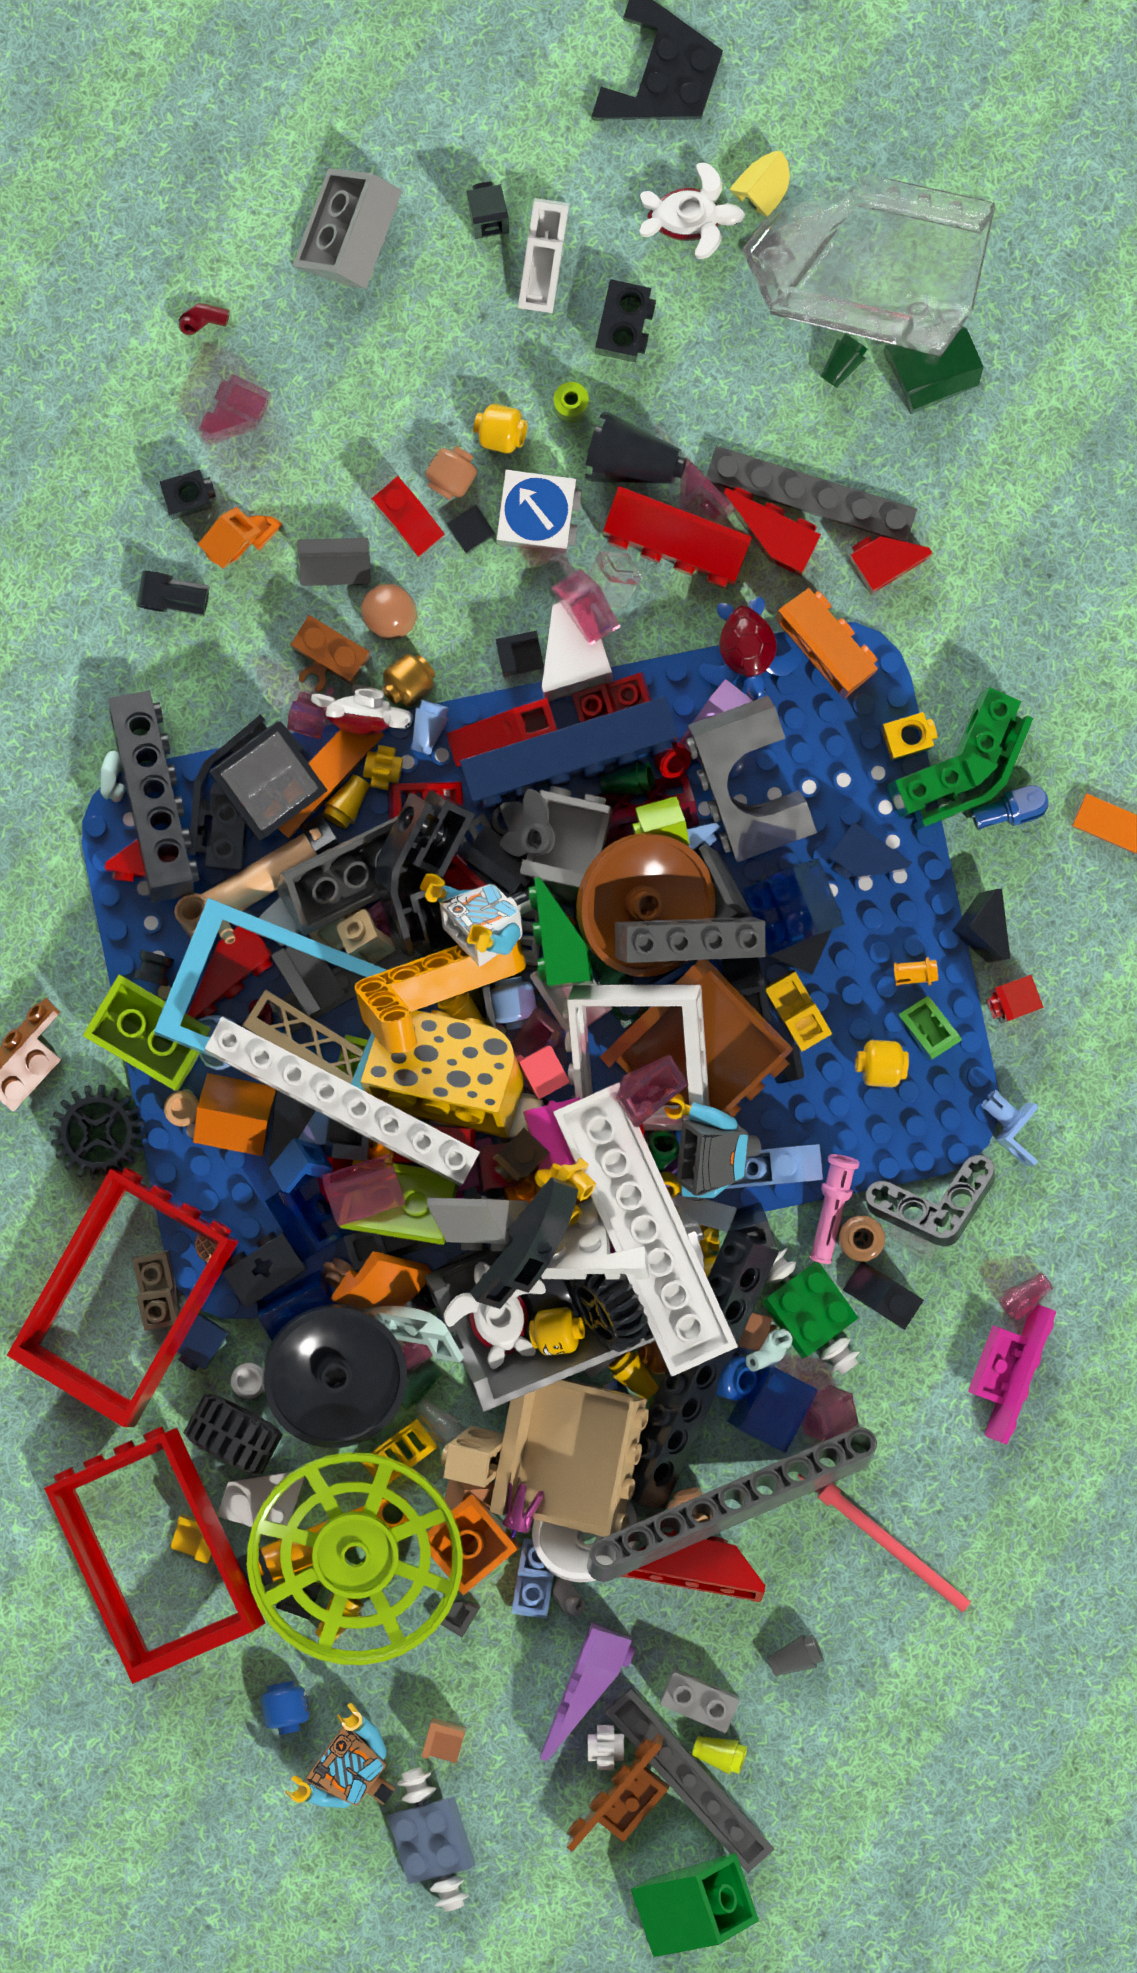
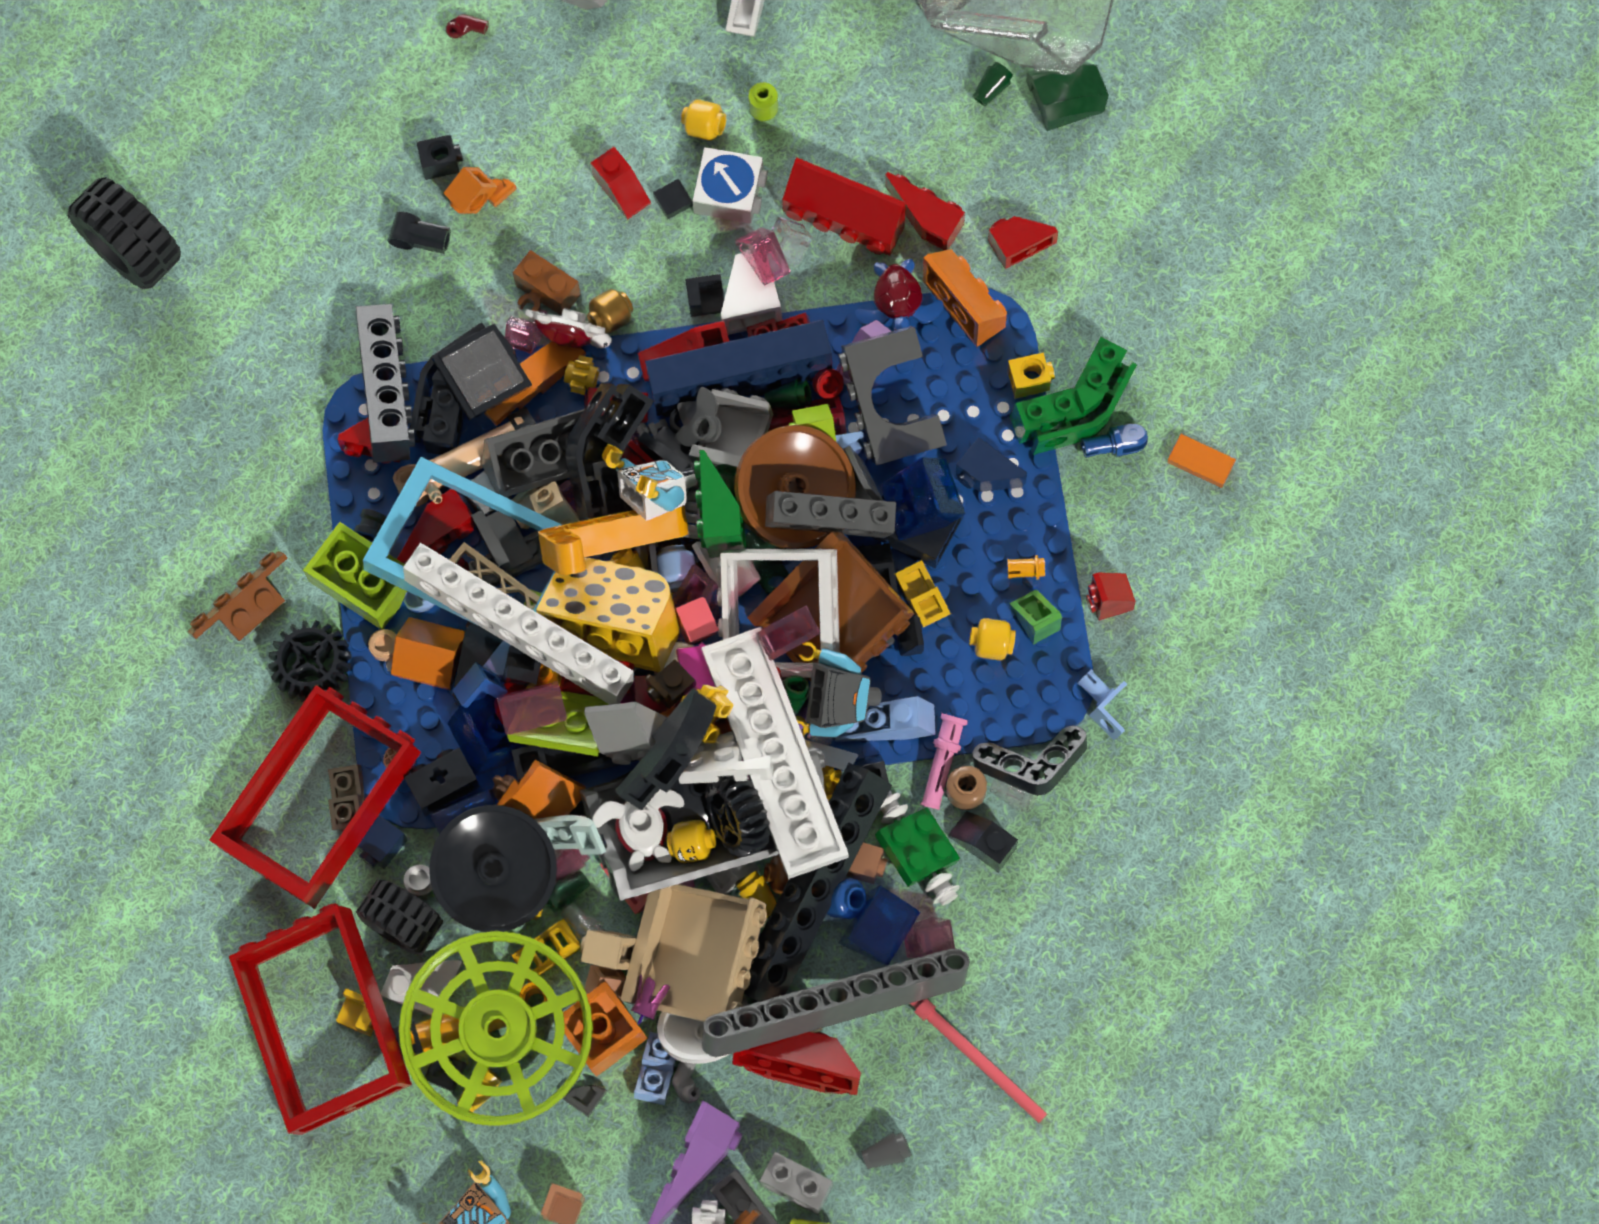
camera: 10 degrees right, 15 degrees down
(109, 774) = (349, 378): light aqua arm -> none
(237, 411) = (486, 97): clear pink slope -> none
(284, 1707) = (423, 1166): blue head -> none
(334, 561) = (556, 215): dark grey panel -> none
(346, 802) = (548, 403): yellow cone -> none
(389, 611) = (599, 258): nougat hair -> none
(428, 725) = (624, 343): light blue cone -> none
(451, 472) = (659, 152): nougat head -> none
(616, 319) = (807, 43): black brick -> none
(631, 455) = (809, 139): black cone -> none
(696, 485) = (865, 173): clear pink slope -> none
(771, 1350) = (881, 874): light aqua arm -> none
(811, 494) = (959, 186): dark grey plate -> none
(985, 926) = (1089, 537): black slope -> none
(1008, 1369) = (1090, 908): dark pink bracket -> none
(1025, 1296) = (1107, 849): clear pink cone -> none

